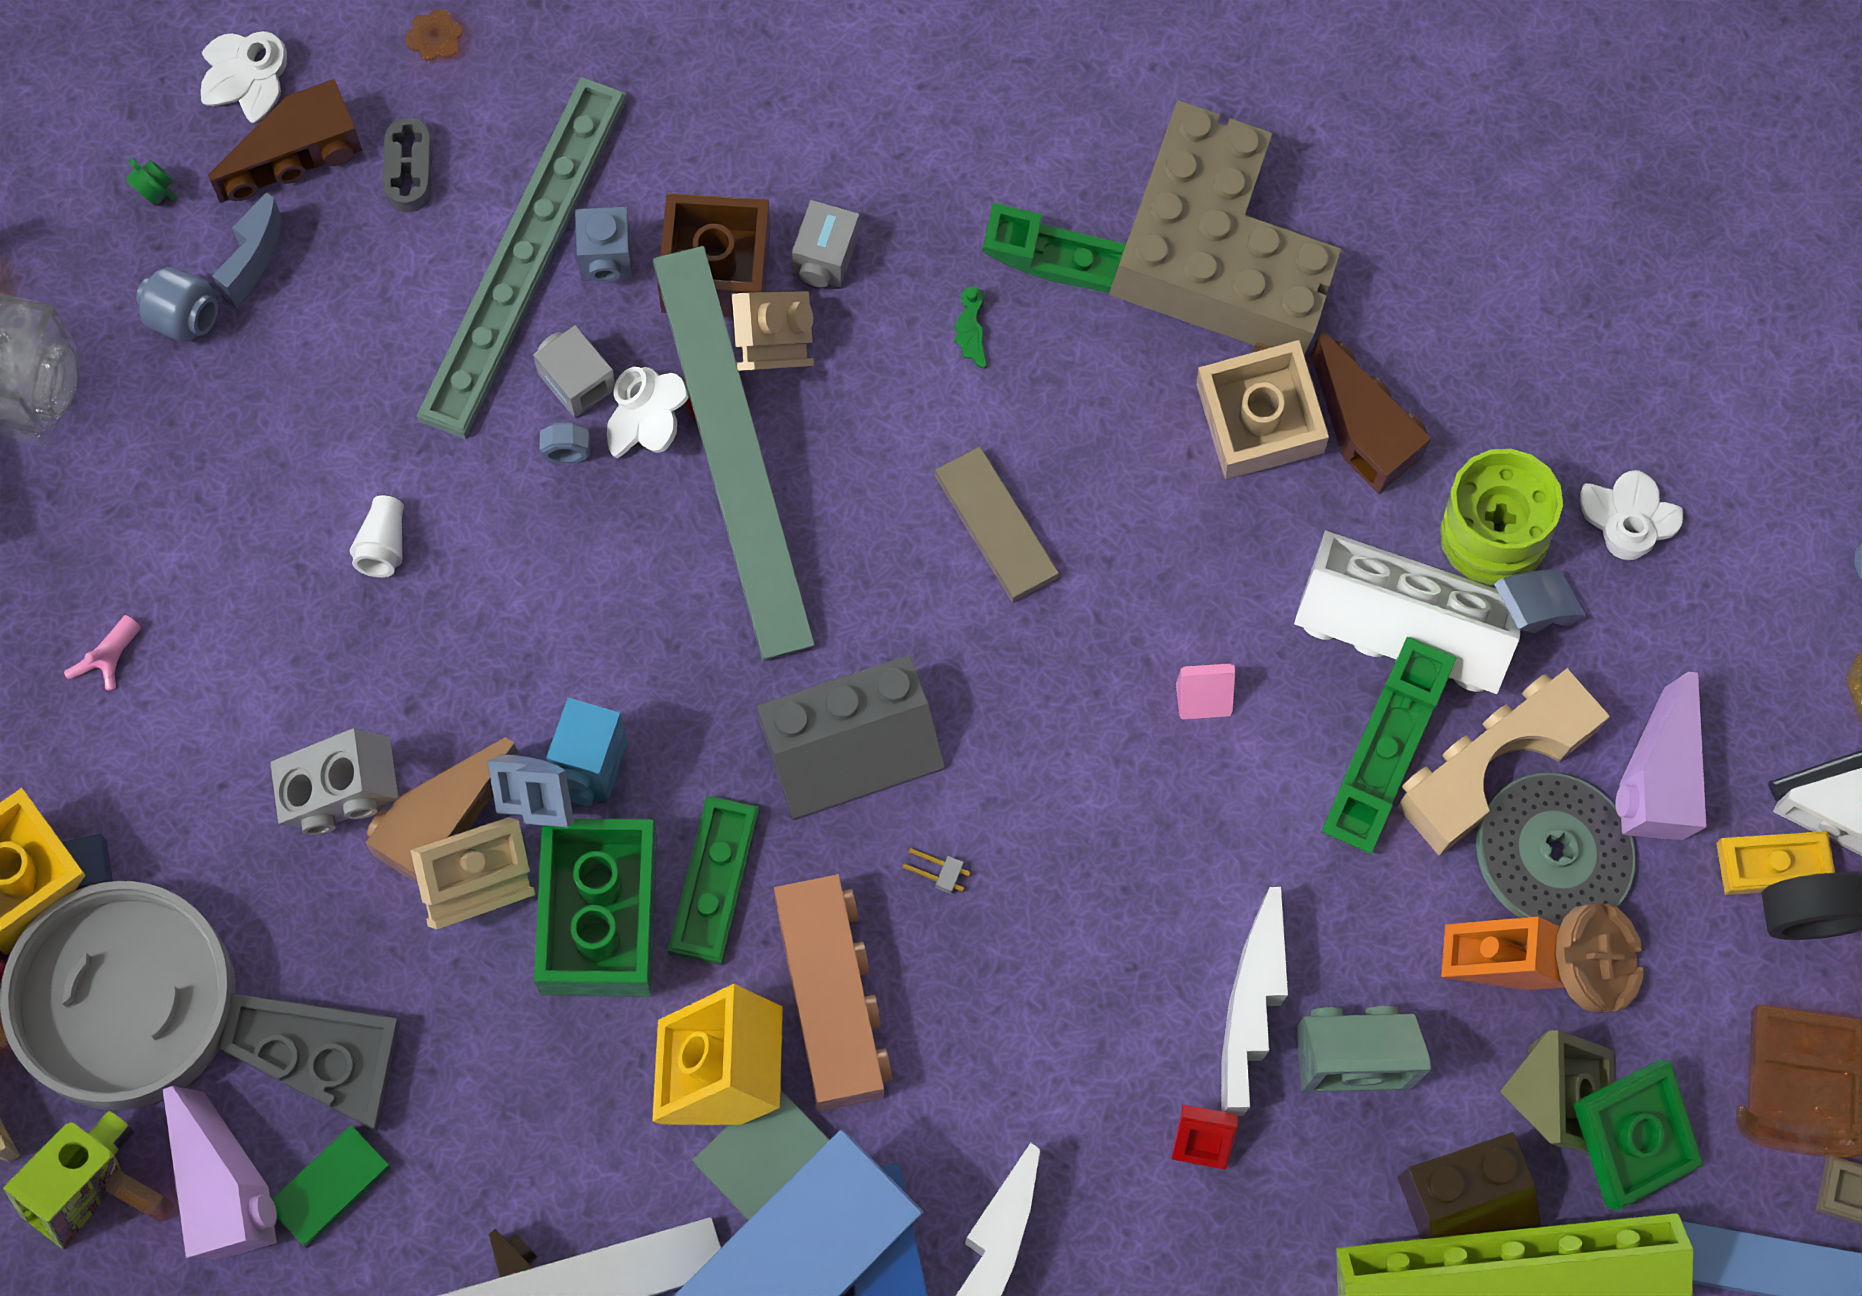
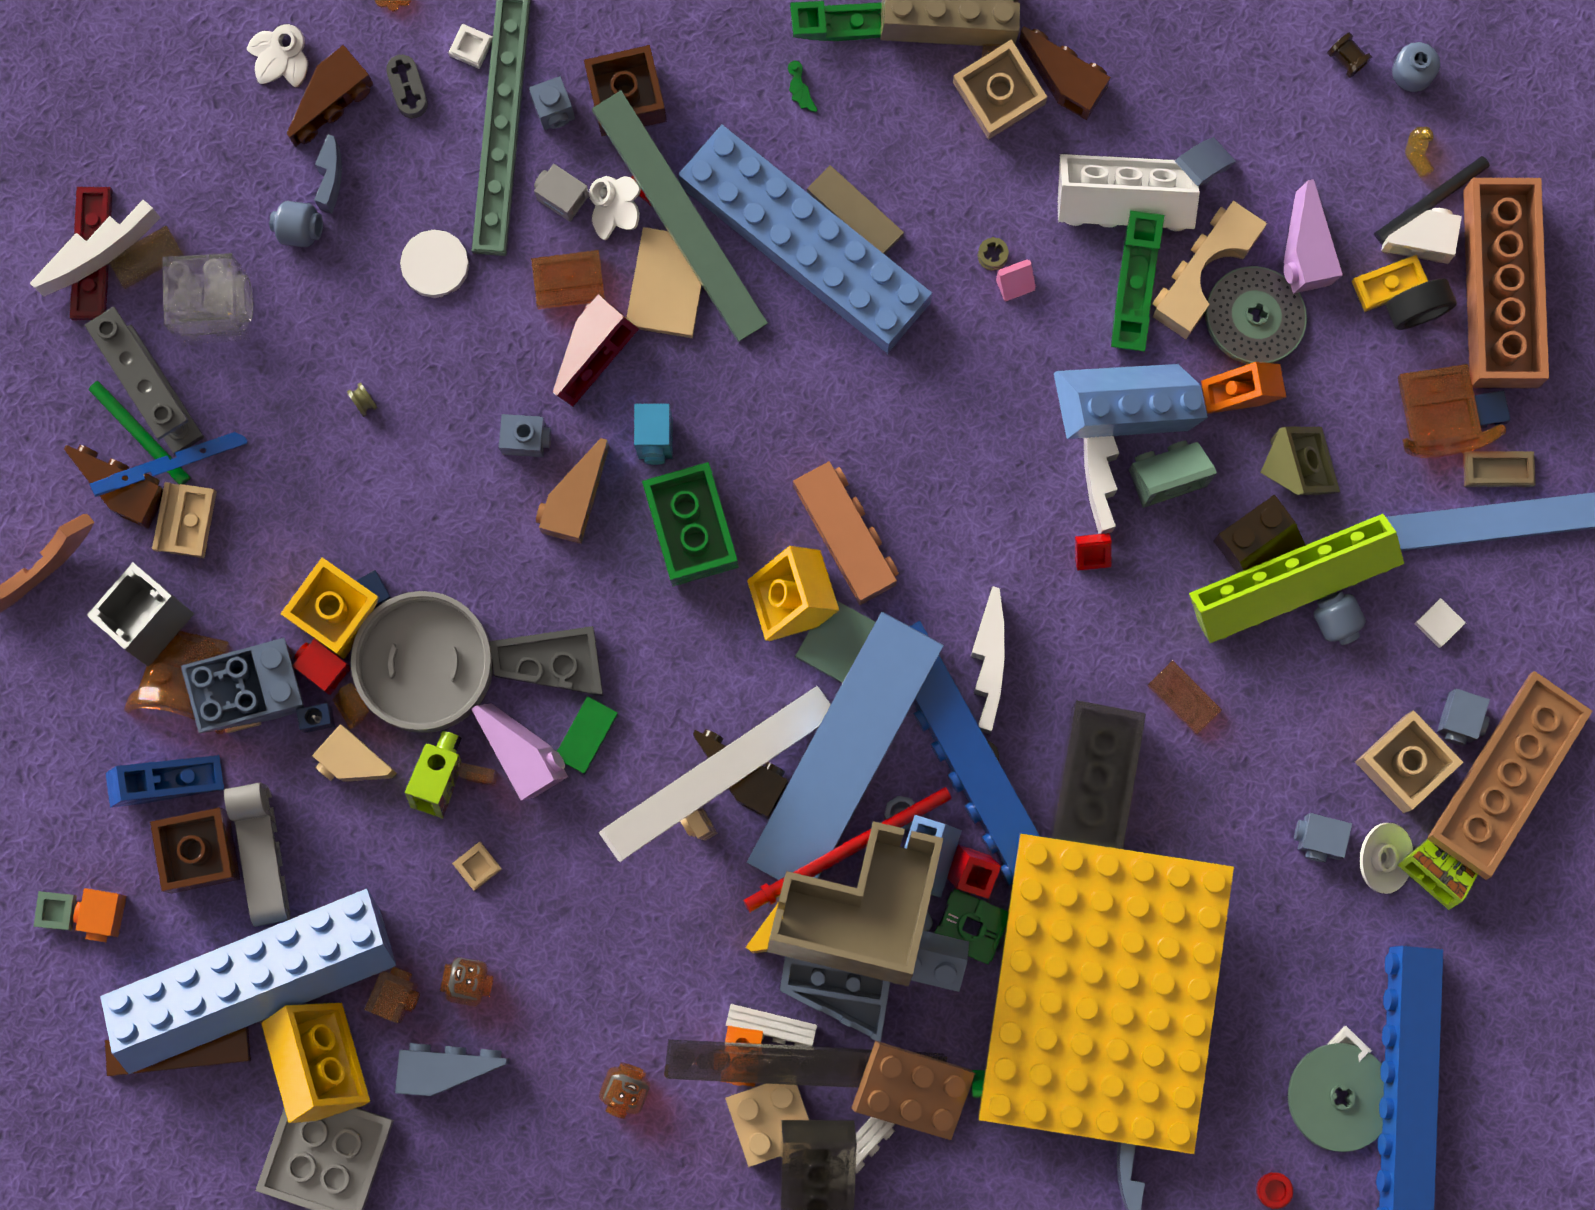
camera: 10 degrees left, 10 degrees up
(107, 652) = (335, 458): bright pink bar -> none
(150, 181) = (248, 147): green plate -> none
(177, 579) = (362, 399): none -> olive bush
(334, 781) = (503, 490): light grey brick -> none
(356, 419) = (434, 263): none -> white tile
(379, 540) = (477, 337): white cone -> none
(395, 701) = (524, 435): none -> sand blue brick
(472, 872) = (609, 525): tan plate -> none
(518, 137) = (470, 46): none -> white tile
(531, 789) = (630, 465): sand blue slope -> none
(541, 497) = (567, 279): none -> clear orange plate
(542, 601) = (593, 345): none -> slope
(564, 443) = (571, 240): sand blue tile -> none
(677, 551) = (663, 287): none -> tan tile
(713, 880) = (753, 486): green tile -> none
(773, 329) = (679, 129): tan plate -> none
(825, 244) = (691, 61): light grey brick -> none
(850, 737) = (808, 374): dark grey slope -> none
(910, 541) = (804, 238): none -> medium blue brick
(948, 875) = (893, 442): piece -> none
(1168, 635) = (1003, 256): none -> olive bush
(1325, 920) = (1129, 401): none -> medium blue slope
(1504, 490) = (1171, 97): lime wheel -> none
(1599, 957) = (1298, 374): medium nougat tile -> none
(1631, 507) = (1245, 82): white plate -> none
(1638, 1134) = (1348, 473): green tile -> none
(1797, 511) = (1349, 54): none -> dark brown bush

